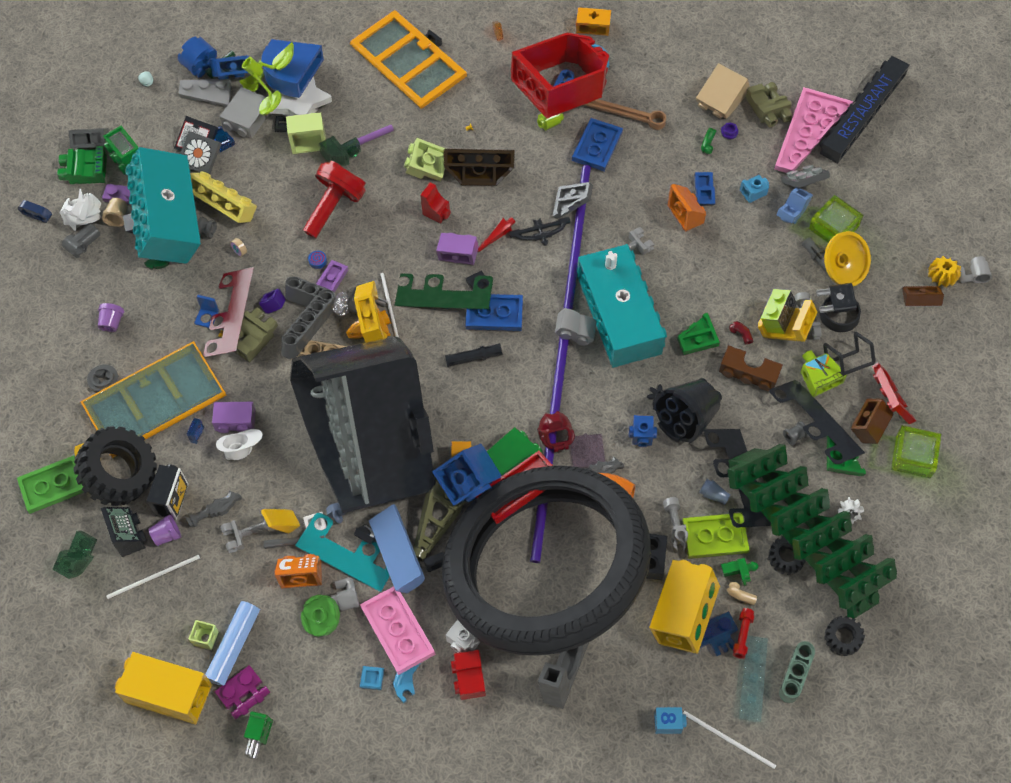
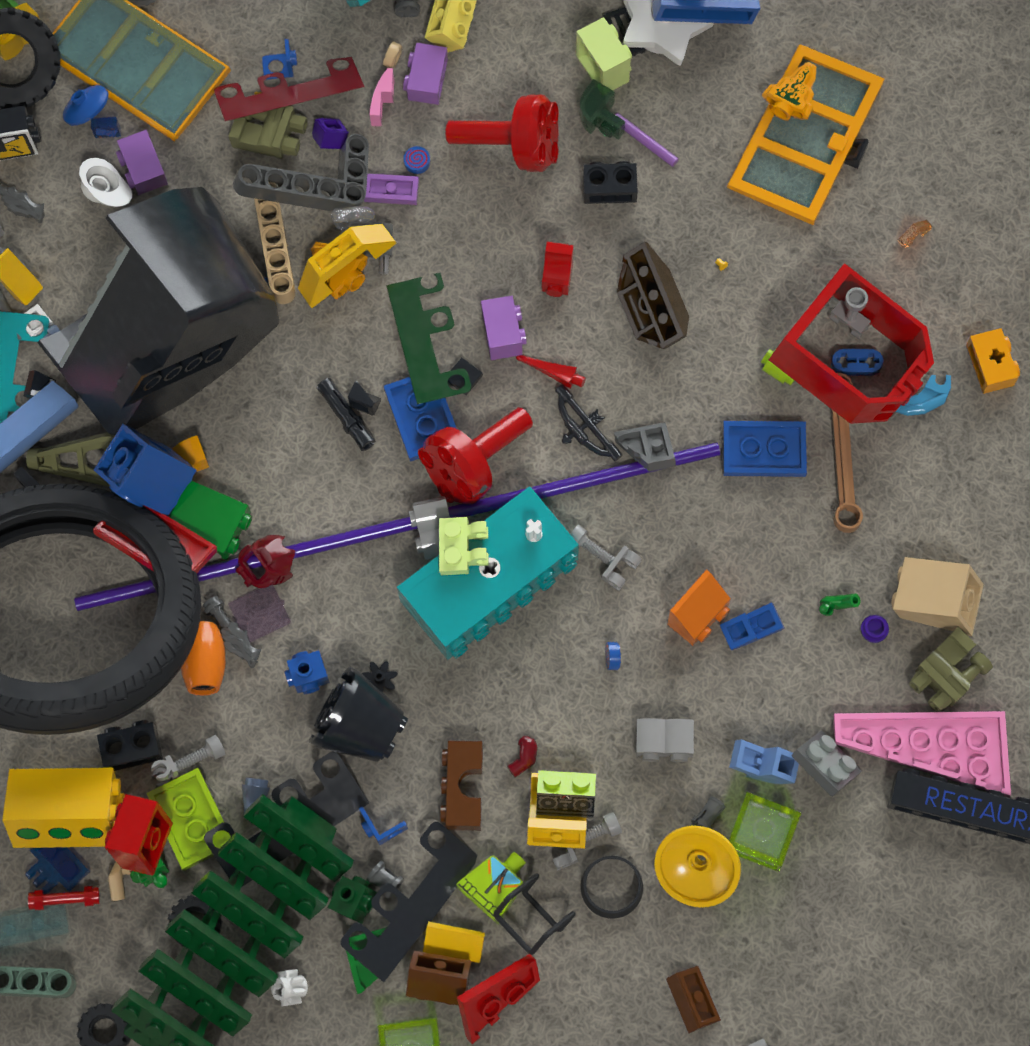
camera: 70 degrees right, 10 degrees up
(171, 438) = (85, 105): none -> blue dish
(262, 232) = (426, 74): none -> medium lavender brick
(262, 260) = (383, 94): none -> bright pink slope
(383, 52) = (793, 94): none -> light orange rock
(389, 161) = (610, 190): none -> black brick
(389, 305) = (375, 284): white piece -> none
(425, 160) = (631, 226): yellowish green plate -> none
(468, 341) = (363, 401): none -> black slope
(537, 56) = (849, 311): none -> light grey bar
(542, 292) = (461, 465): none -> red piece
(601, 307) = (454, 545): none -> yellowish green plate
(696, 262) = (613, 655): none -> blue tile
(698, 336) = (491, 698): green wing -> none
(725, 559) = (138, 834): none -> red brick
(754, 188) = (769, 697): dark azure brick -> none
(758, 253) = (665, 739): none -> light grey brick
(763, 428) = (371, 831): none -> blue bracket
(808, 446) = (352, 898): none -> dark green brick
(841, 298) = (624, 876): black piece -> none
(849, 407) = (454, 942): none -> yellow tile
(944, 271) = (742, 1030): yellow gear -> none

